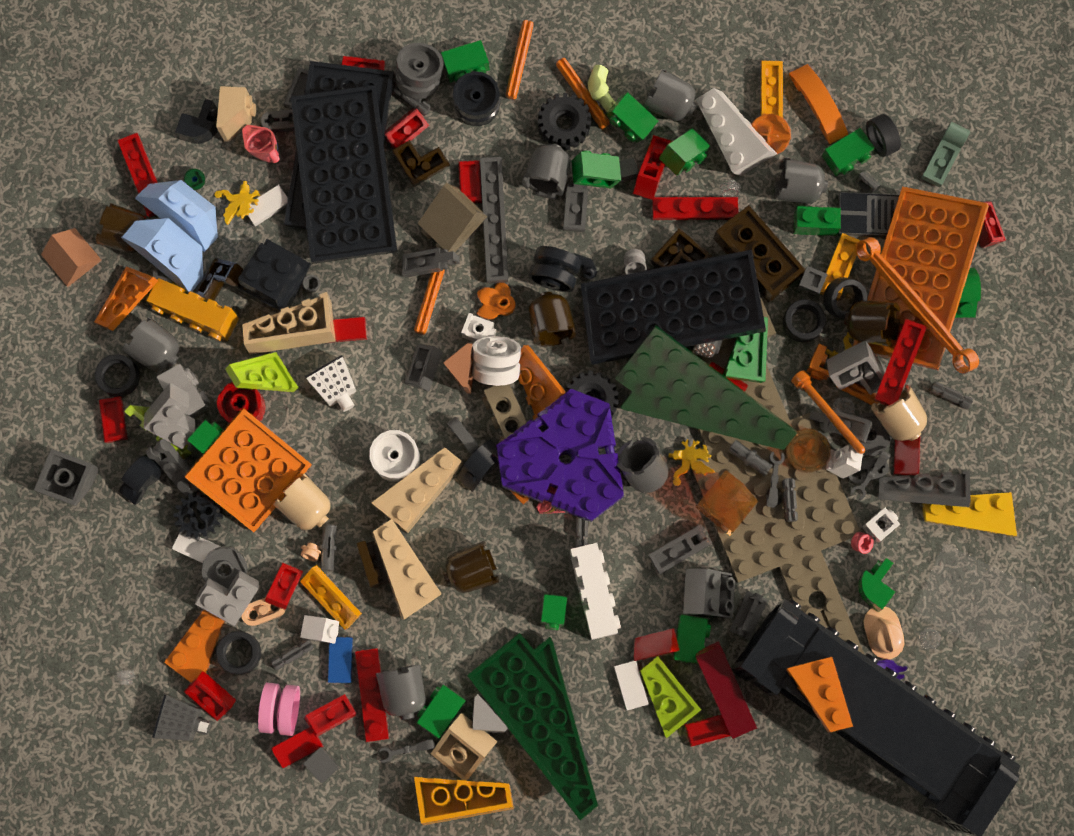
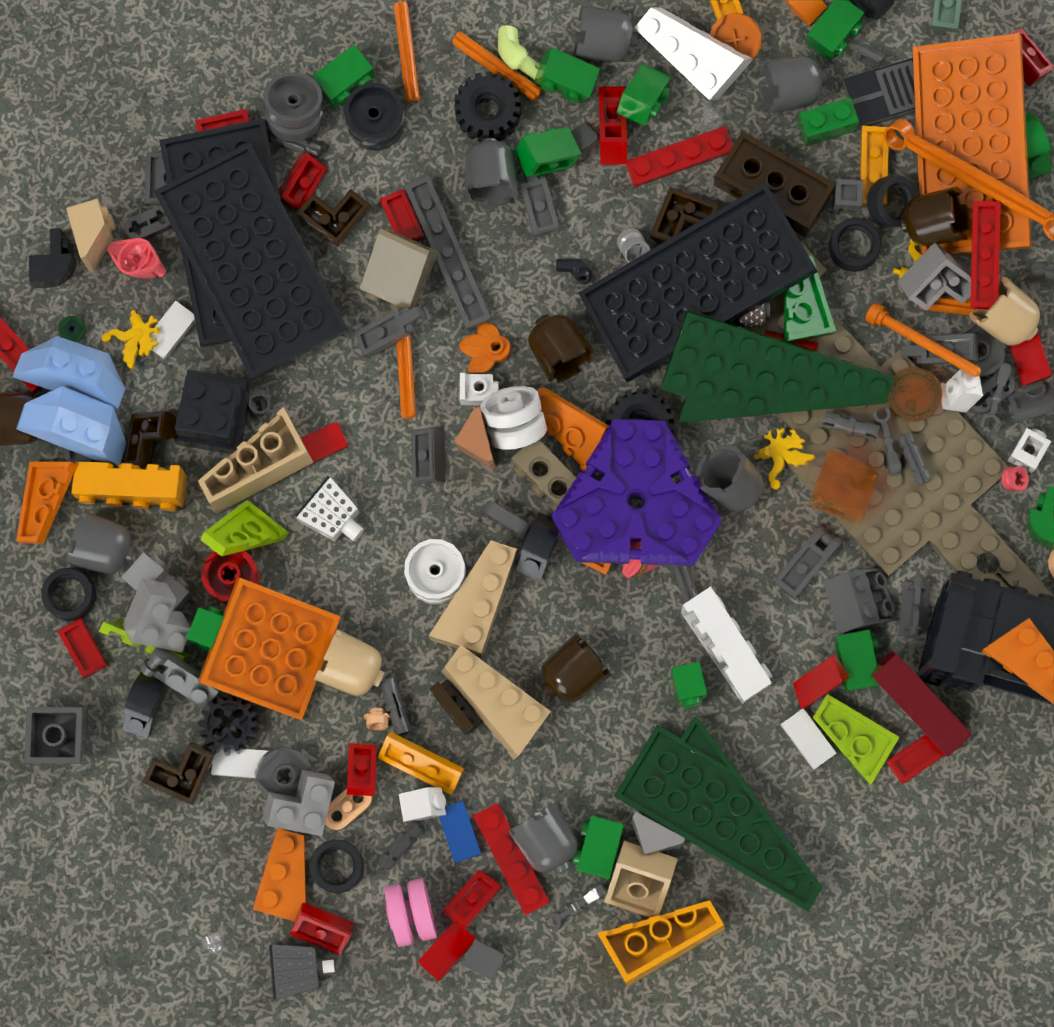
camera: 15 degrees left, 0 degrees up
(149, 546) = (181, 781): none -> dark brown brick
(555, 269) = (542, 286): black wheel -> none
(818, 359) = (887, 284): orange bracket -> none

